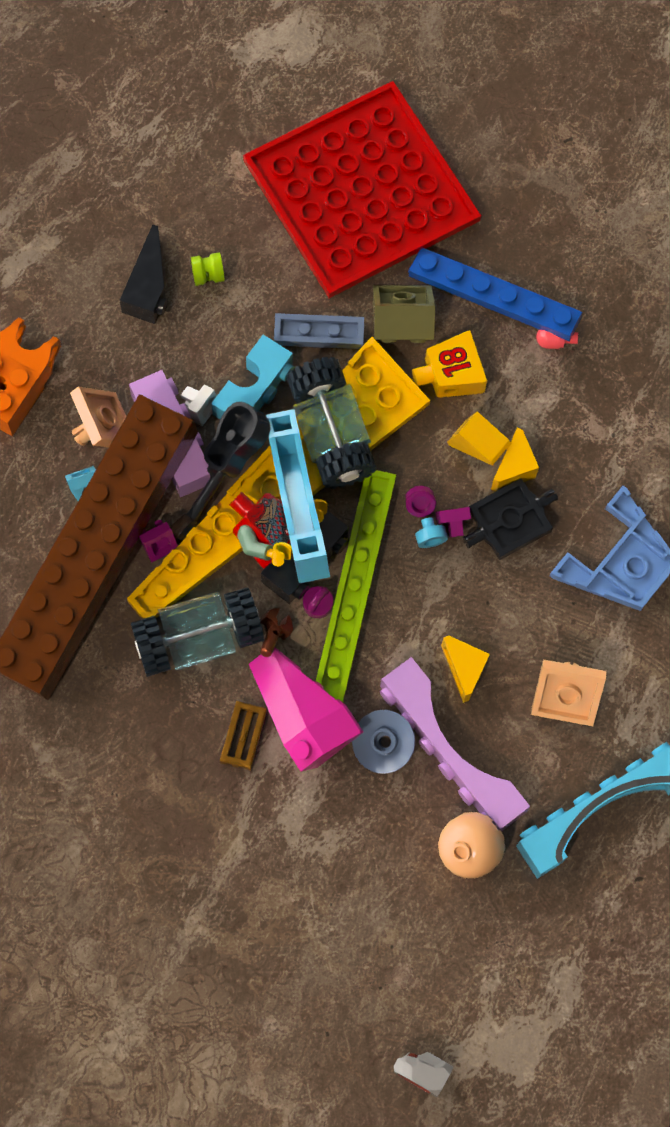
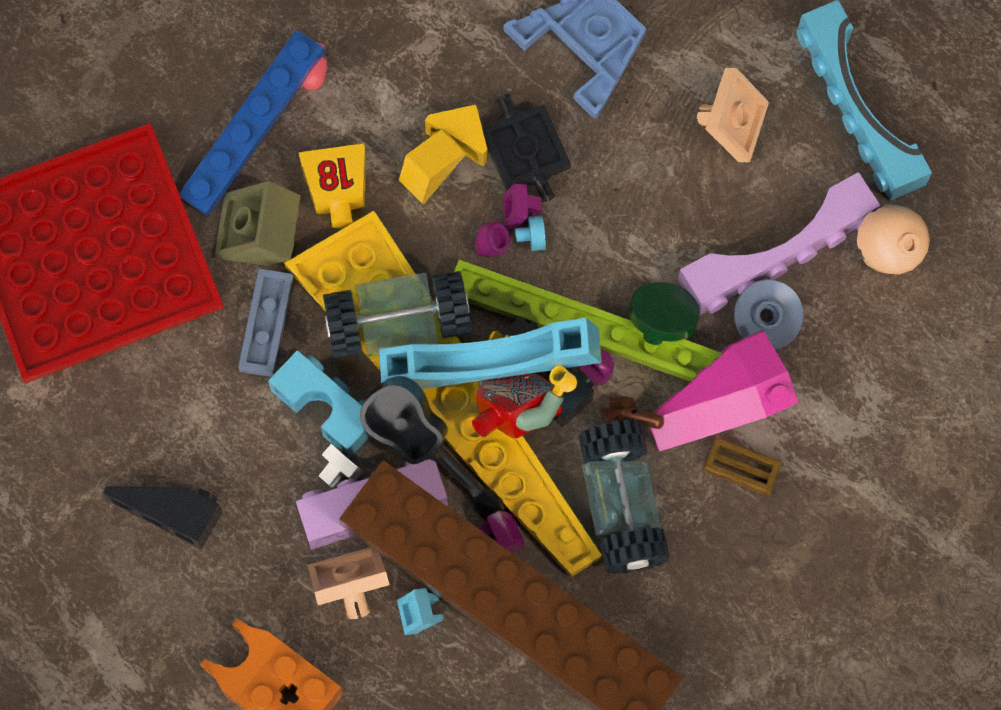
camera: 80 degrees left, 0 degrees up
(207, 269) = (166, 439): lime wheel -> none
(370, 649) = (664, 312): none -> dark green tile
(465, 664) = (691, 219): yellow slope -> none

